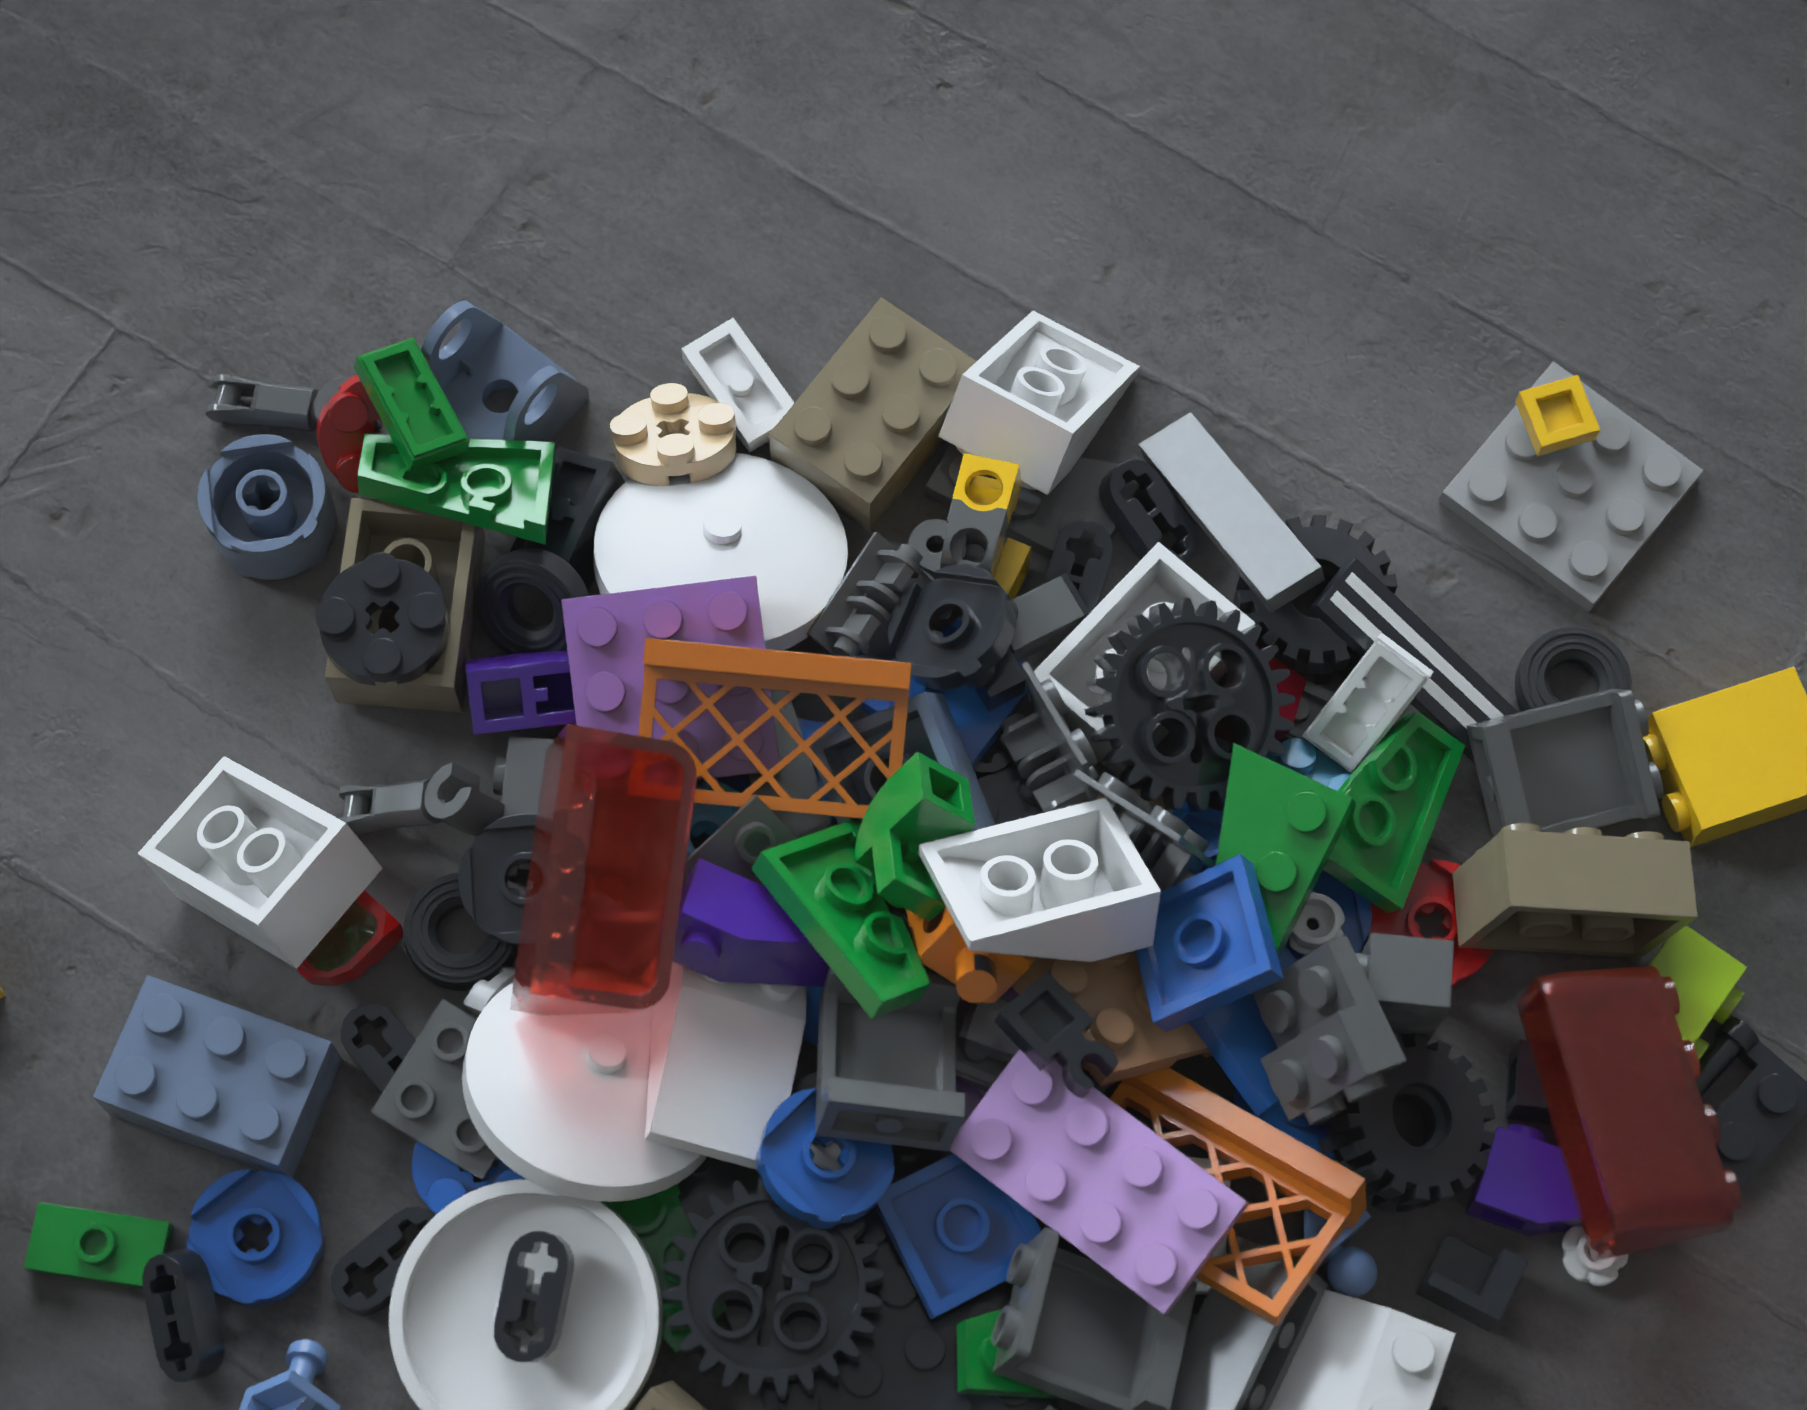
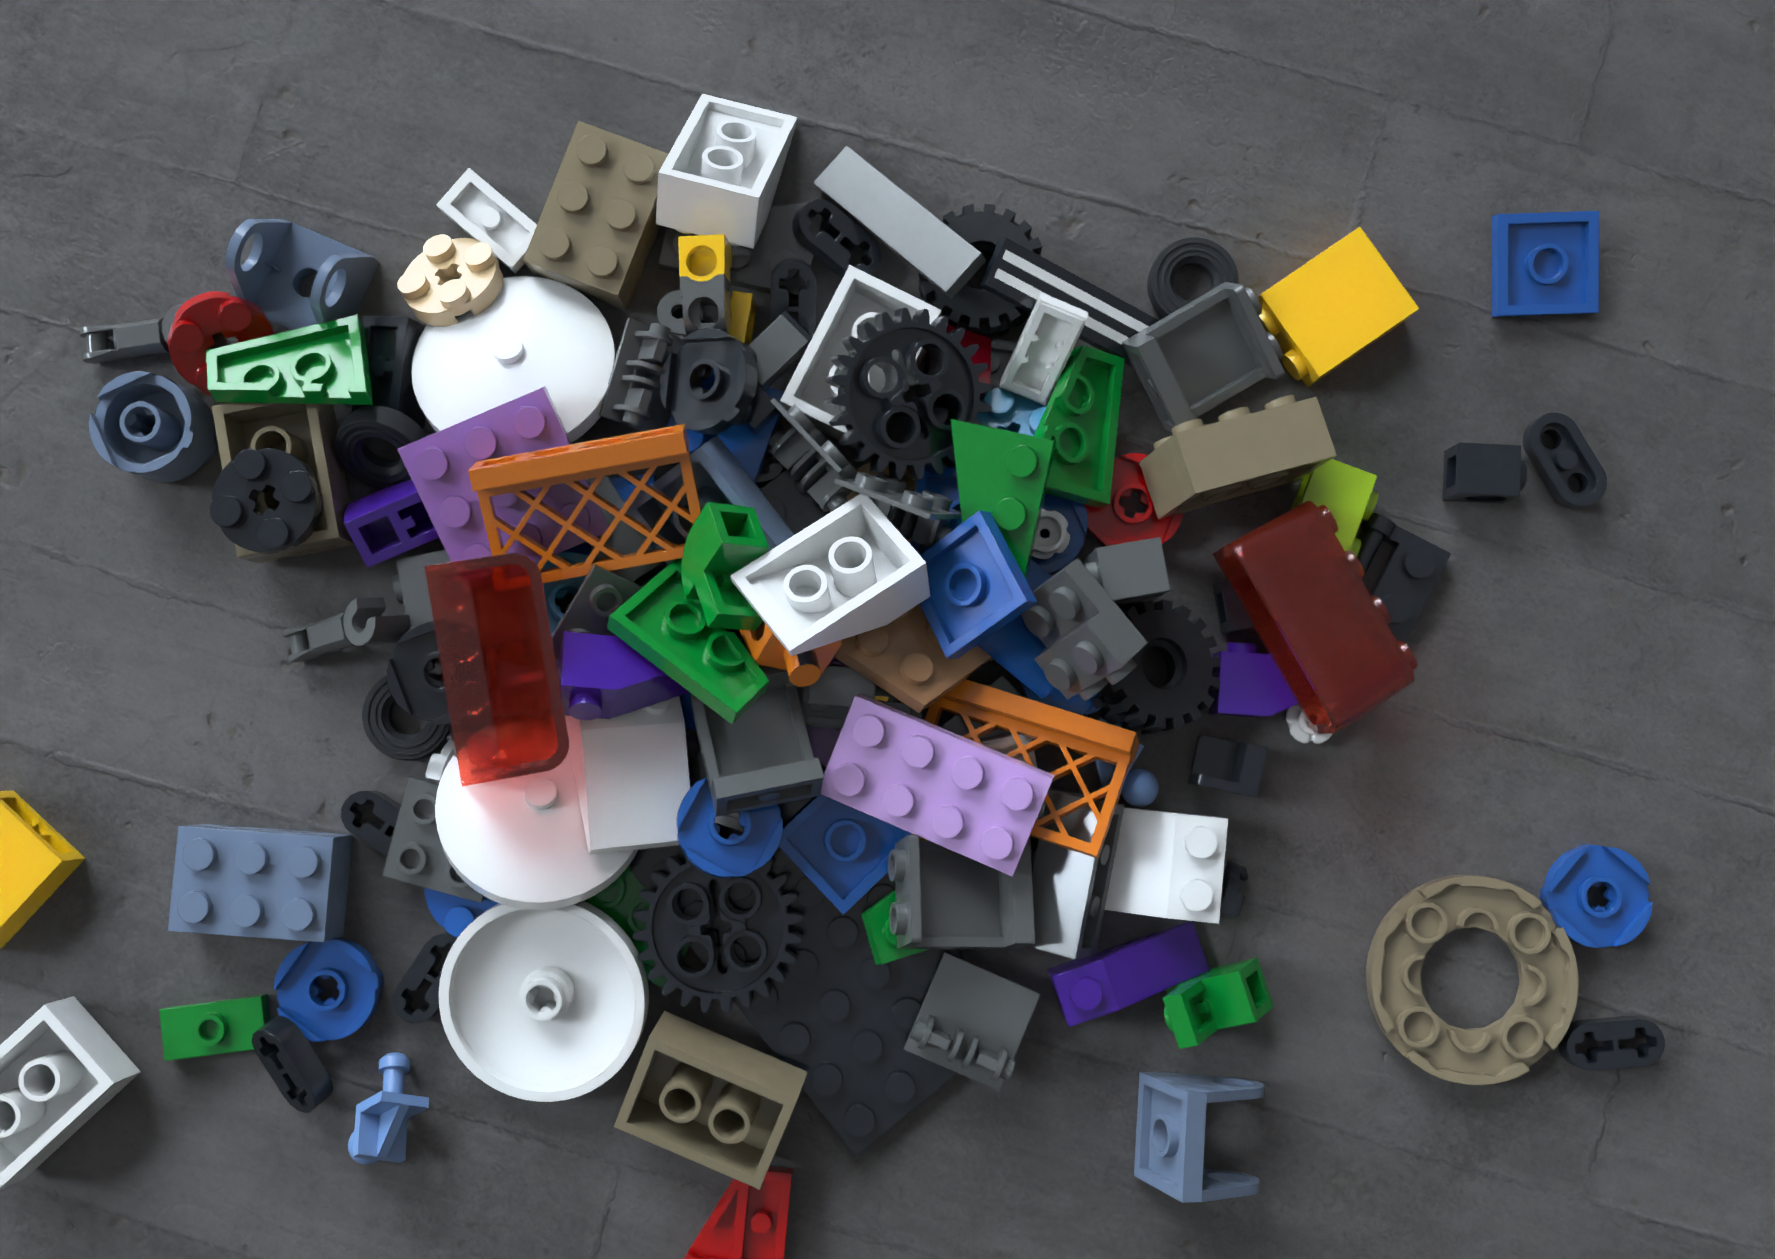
camera: 10 degrees left, 15 degrees up
(261, 861) = (234, 716): white brick -> none
(352, 944) = (322, 748): rock -> none
(411, 404) = (231, 318): green plate -> none
(517, 1293) = (555, 986): black beam -> none
(1051, 1026) = (868, 686): black plate -> none
(1557, 415) = (1131, 70): yellow plate -> none
(1578, 509) = (1153, 122): light grey plate -> none

